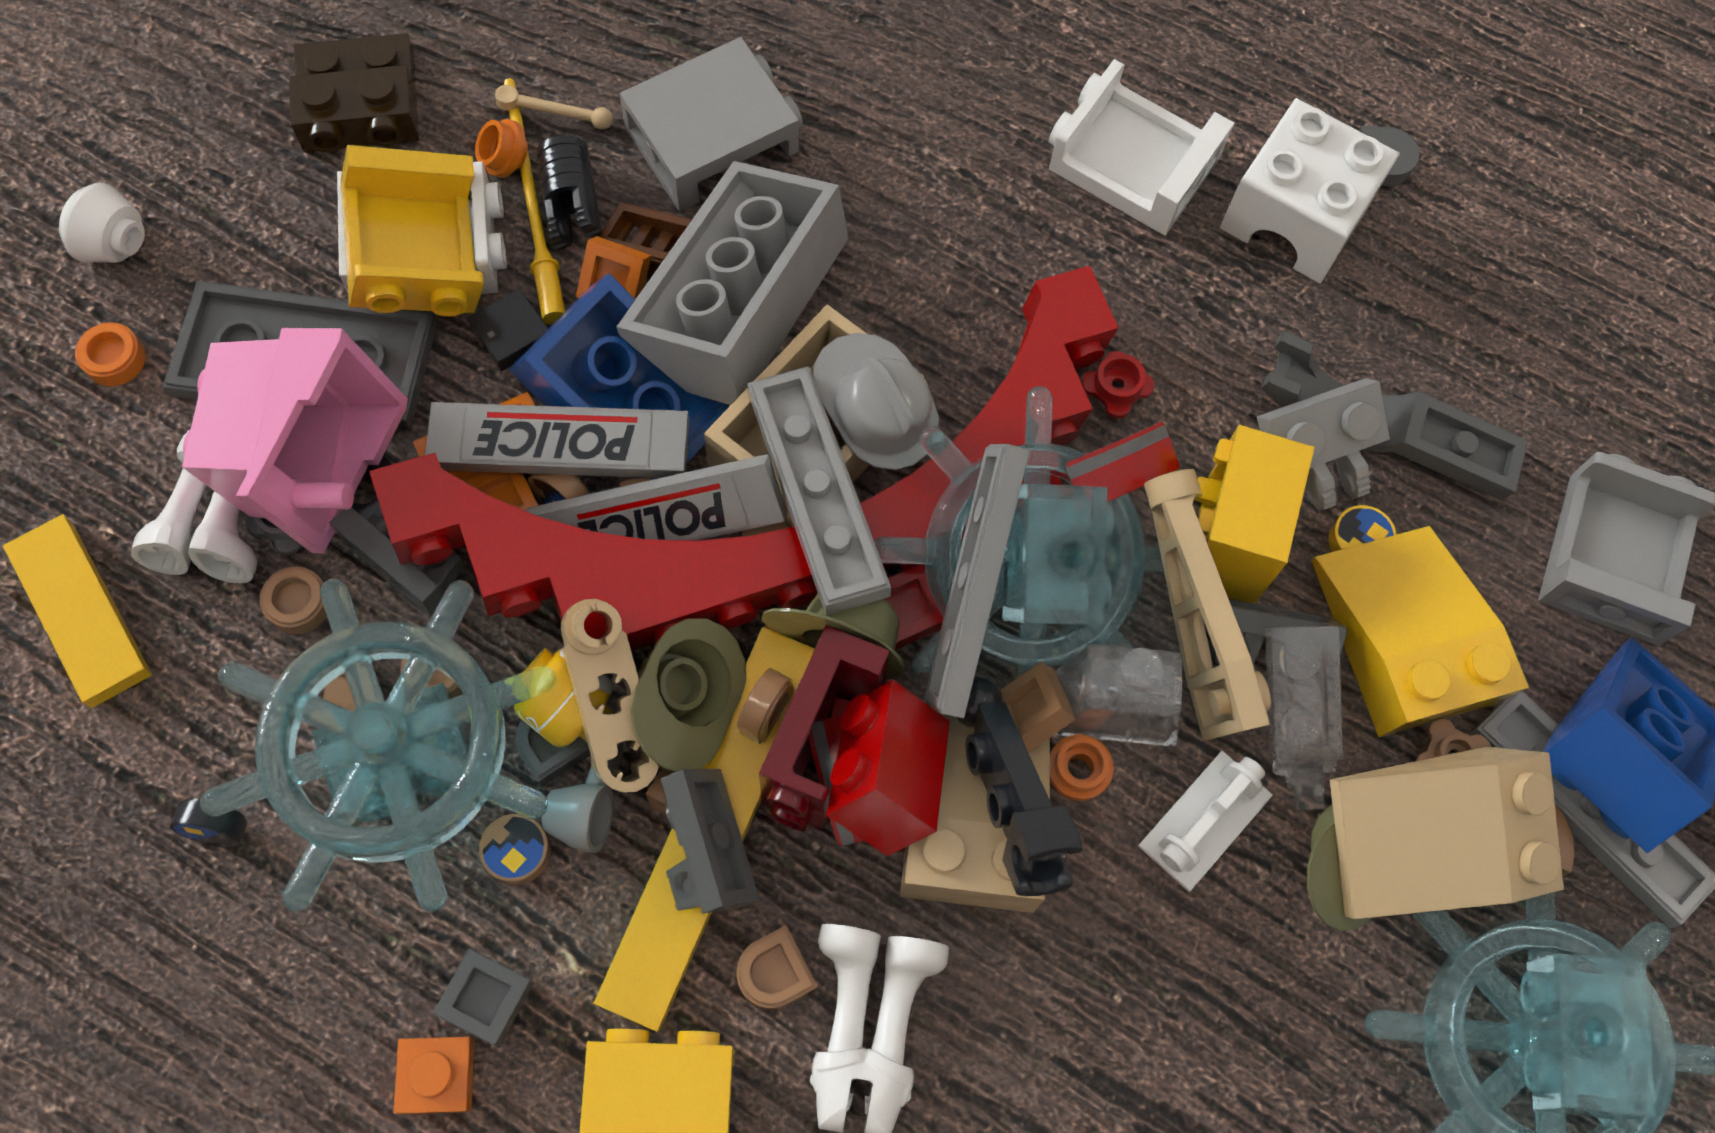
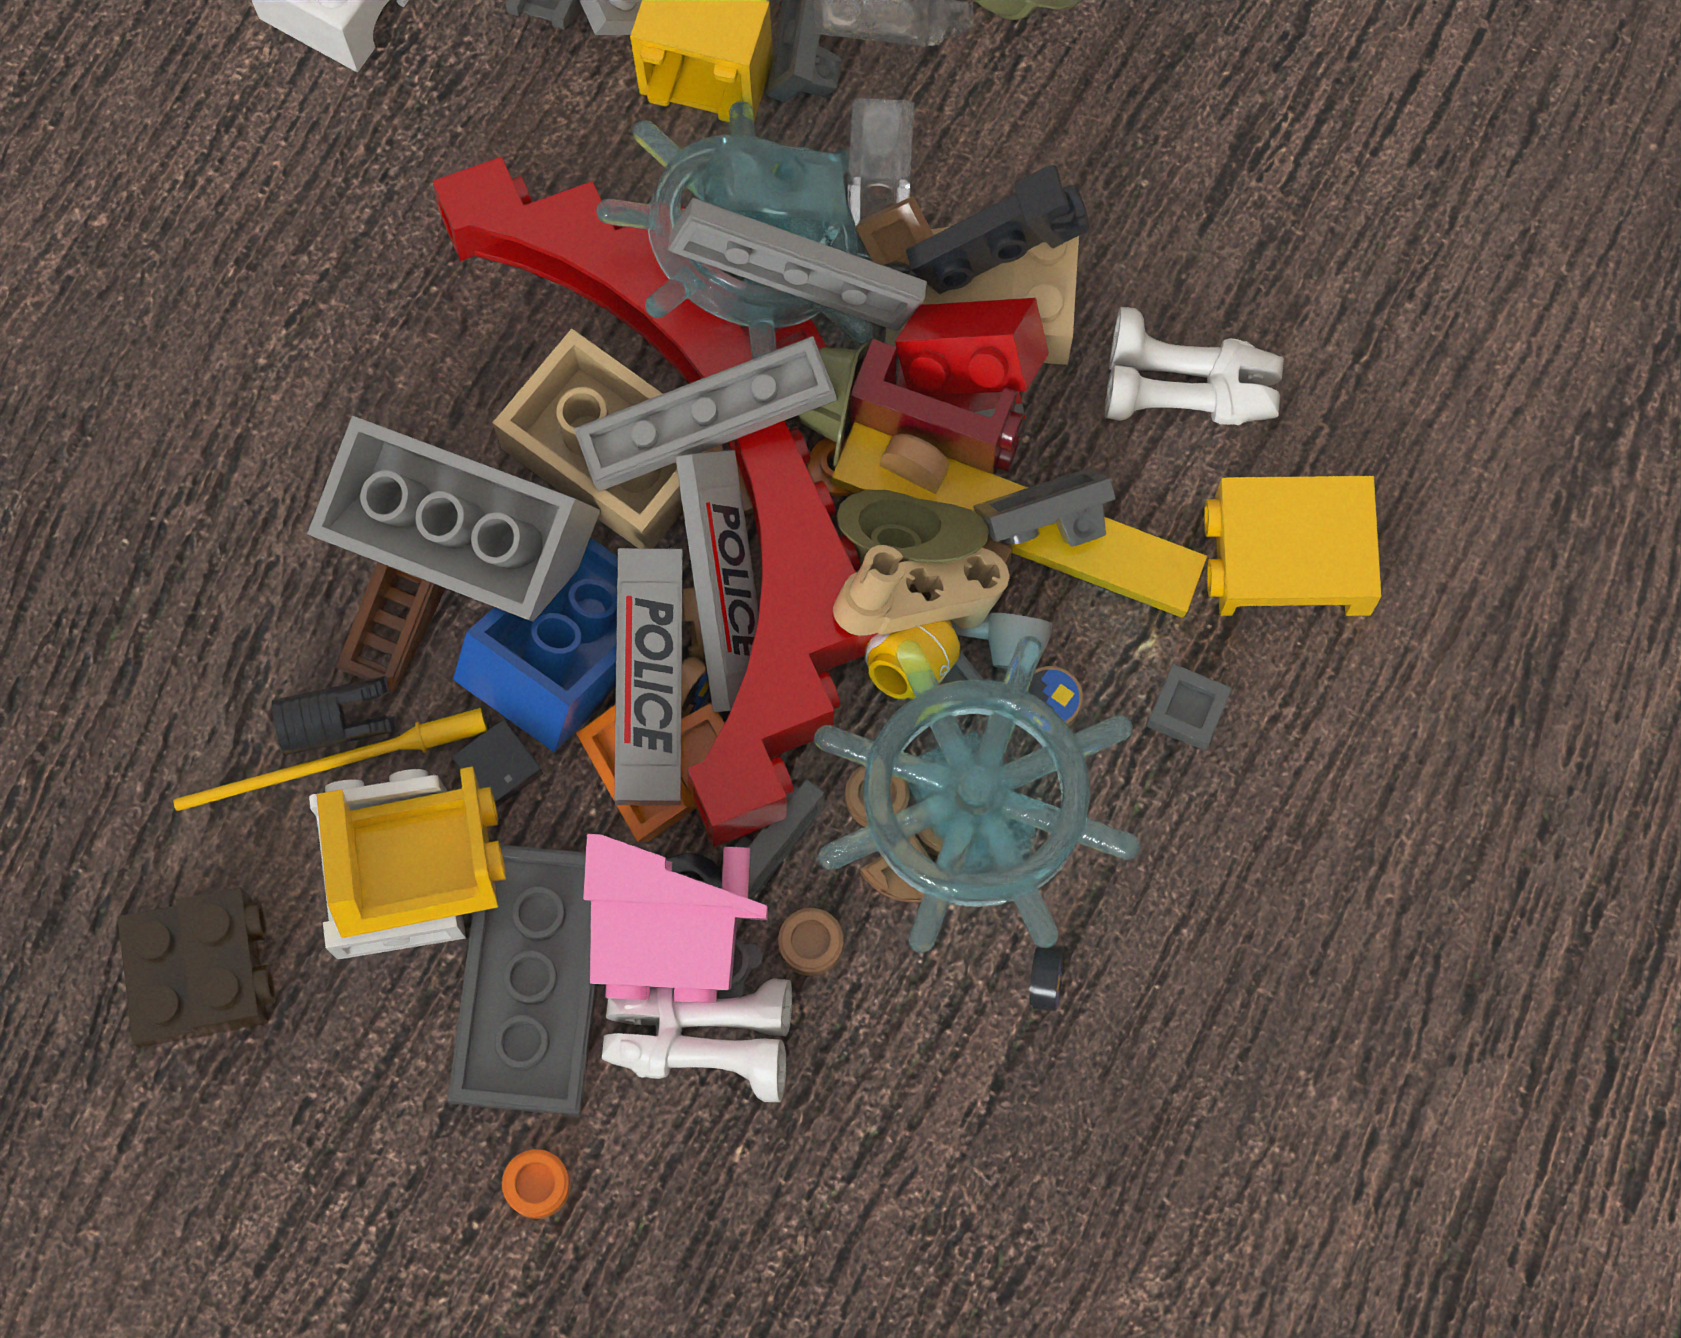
camera: 85 degrees left, 5 degrees up
(77, 611) = (832, 1157): yellow tile -> none
(100, 225) = (386, 1208): white cone -> none
(434, 1075) = (1257, 747): orange plate -> none
(501, 147) = (273, 807): orange plate -> none
(508, 99) = (204, 796): tan hinge -> none
(622, 262) = (432, 658): orange plate -> none
(707, 117) = (242, 572): light grey panel -> none
(774, 972) = (1144, 464): medium nougat tile -> none
(875, 399) = (599, 369): light grey piece -> none
(1091, 752) = (944, 191): orange plate -> none
(1124, 369) = (541, 153): red plate -> none
(1126, 463) = (669, 143): red sticker -> none
(1135, 150) = (273, 143): white panel -> none
(1207, 819) = (983, 101): white hinge -> none
(1232, 694) = (884, 68): tan plate -> none

